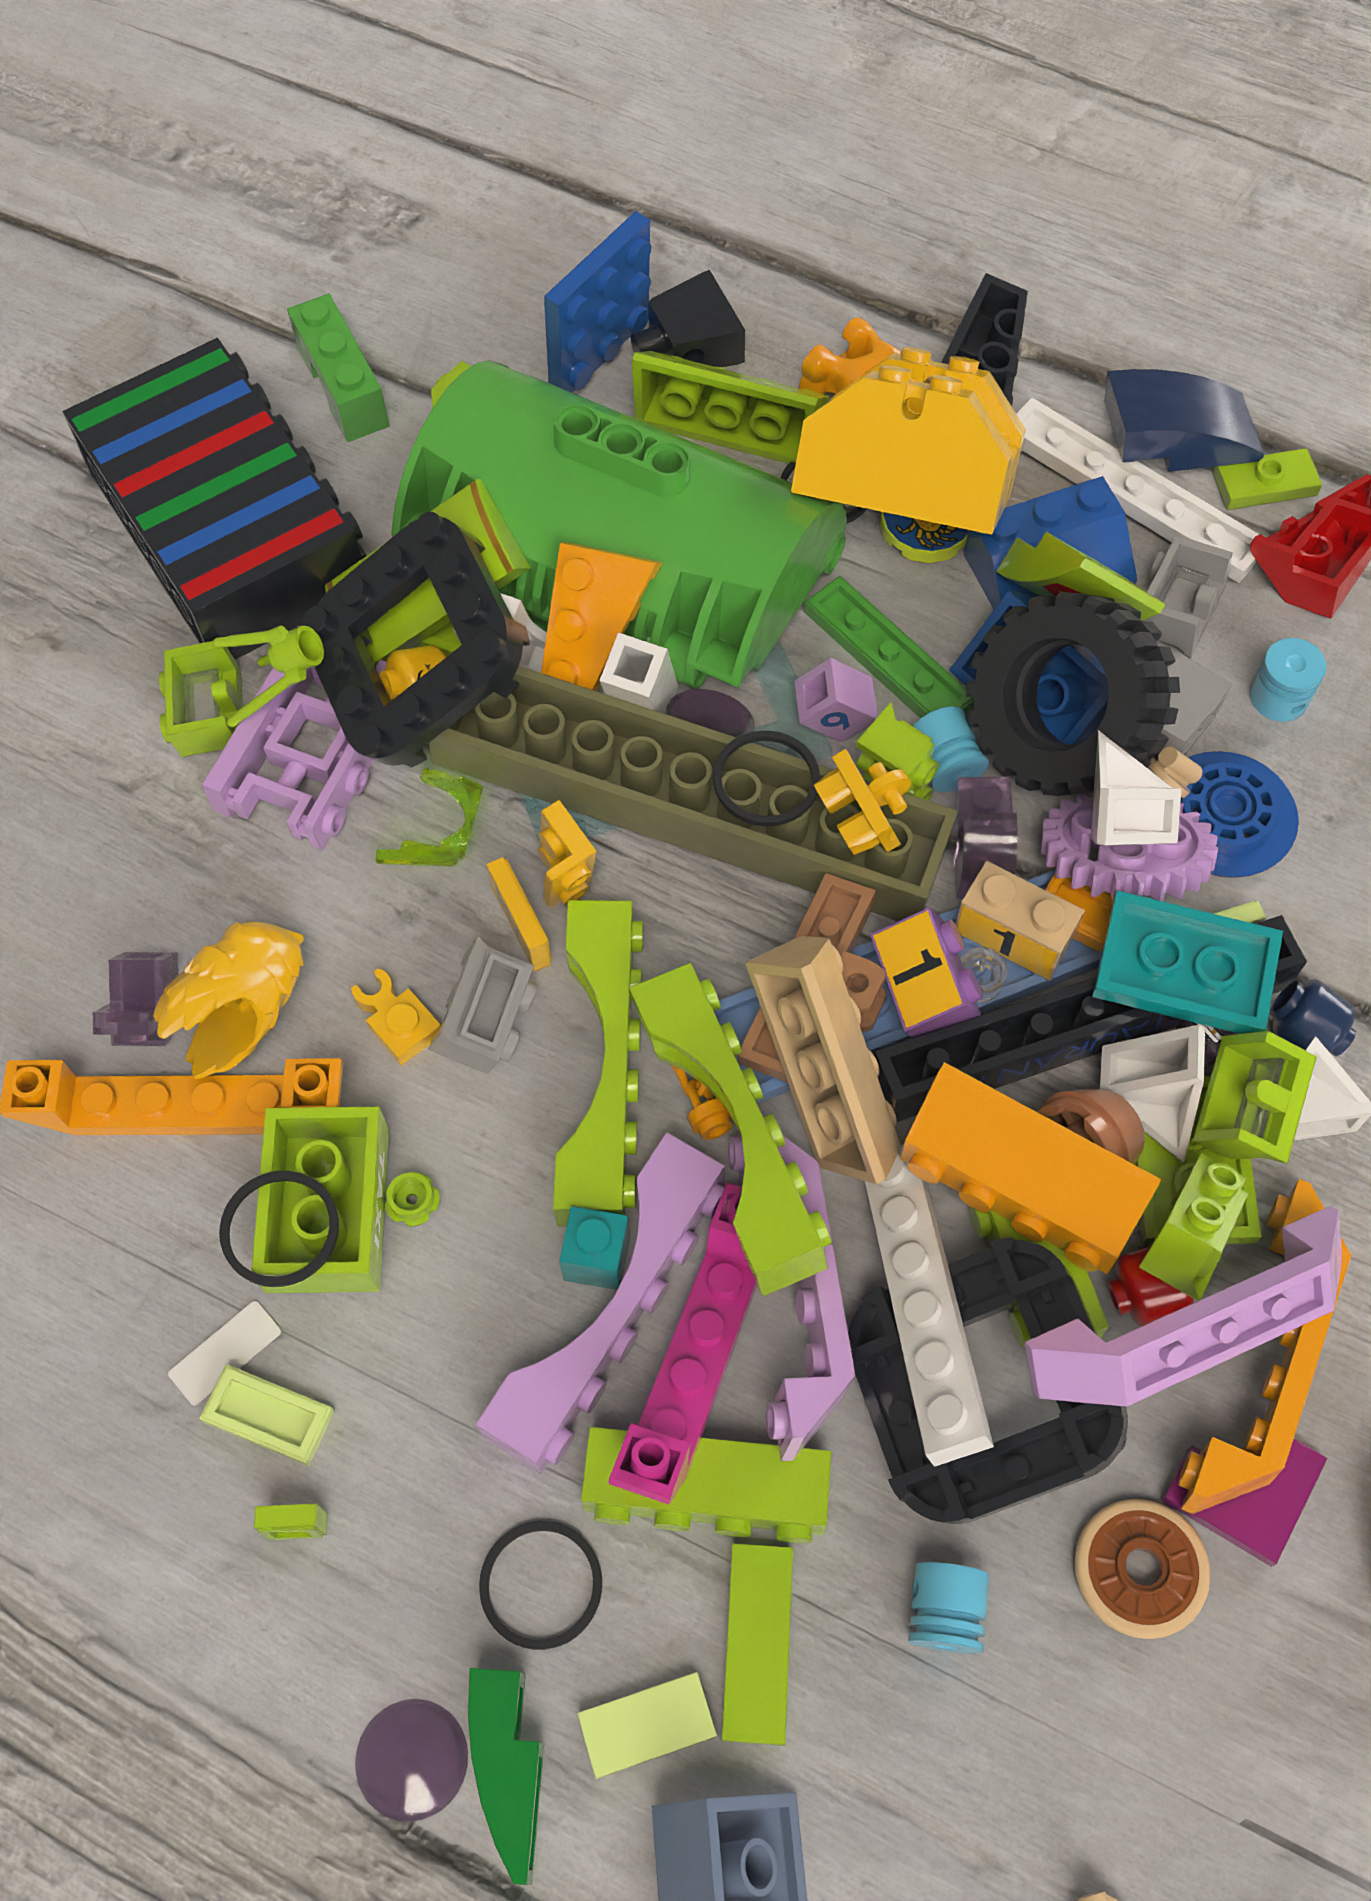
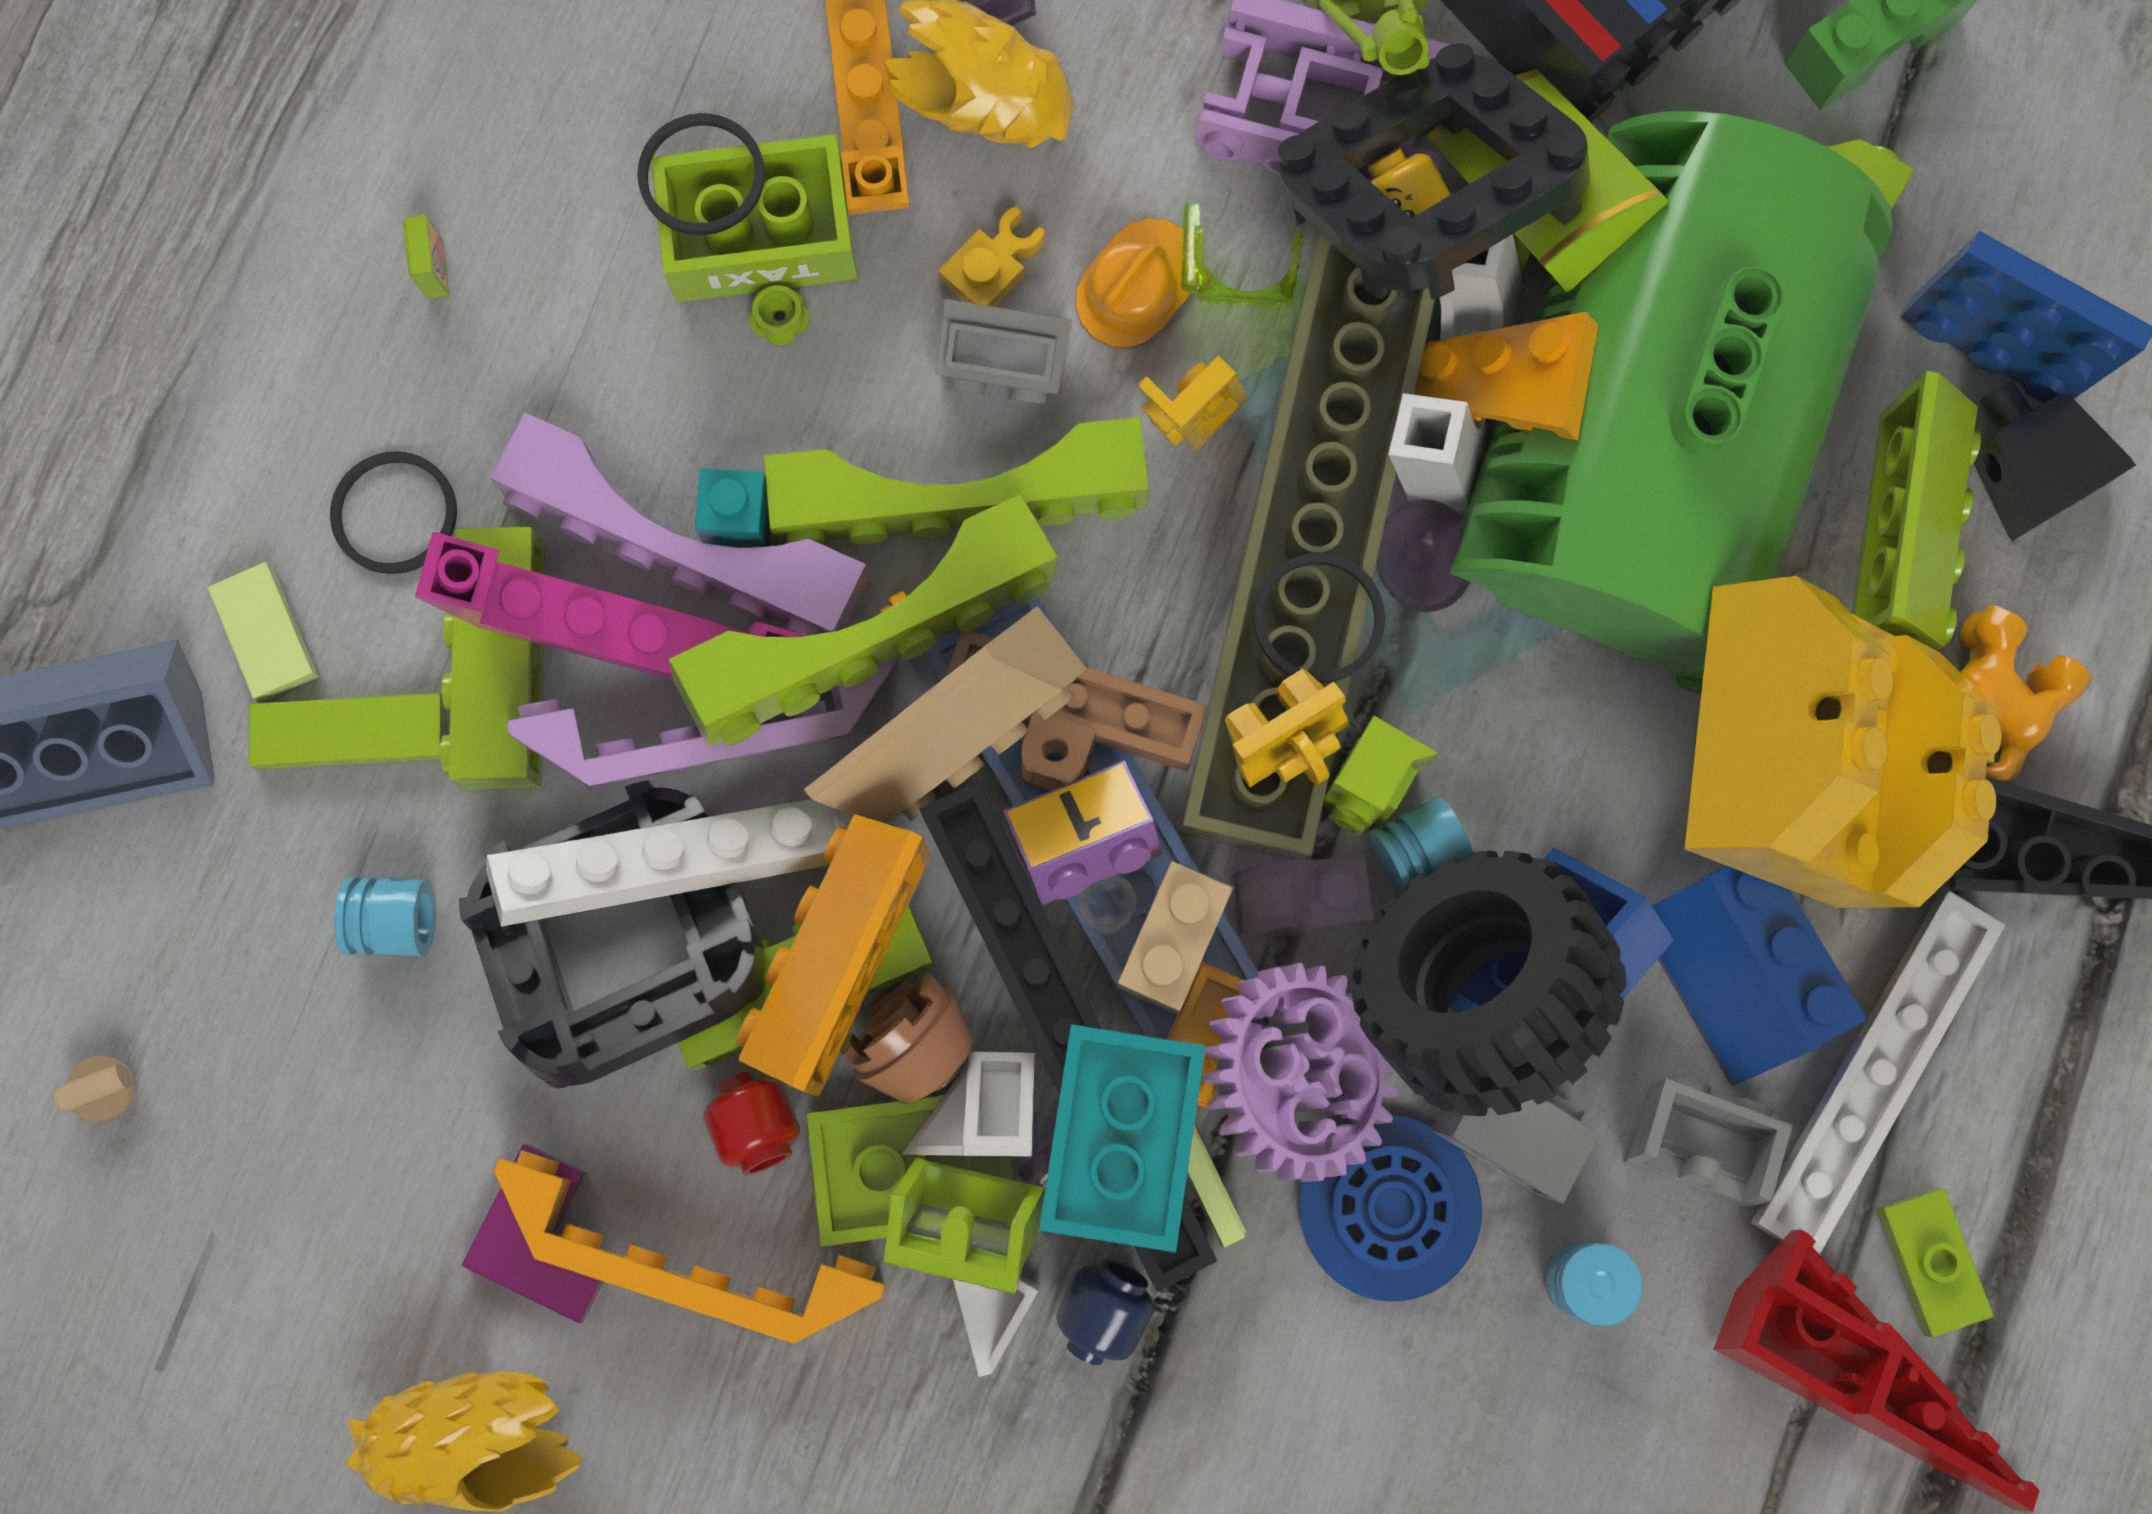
camera: 80 degrees right, 15 degrees up
(231, 1345) = (599, 162): white sticker -> none
(267, 1415) = (537, 216): yellowish green tile -> none
(411, 1760) = (224, 417): clear purple piece -> none
(436, 908) = (1133, 284): none -> light orange piece
(505, 1767) = (208, 499): green slope -> none
(519, 913) = (1125, 371): yellow tile -> none
(835, 700) = (1468, 702): lavender brick -> none
(885, 650) = (1570, 761): bright green tile -> none
(1062, 568) = (1671, 983): lime slope -> none
(1082, 1368) = (641, 1150): lavender slope -> none
(1114, 1596) = (409, 1116): dark orange wheel -> none
(1131, 800) = (1320, 1051): white slope -> none
(1176, 769) = (1413, 1127): tan plate -> none
(1179, 419) = (2003, 1134): dark blue slope -> none
(1197, 1227) = (796, 1158): lime window -> none

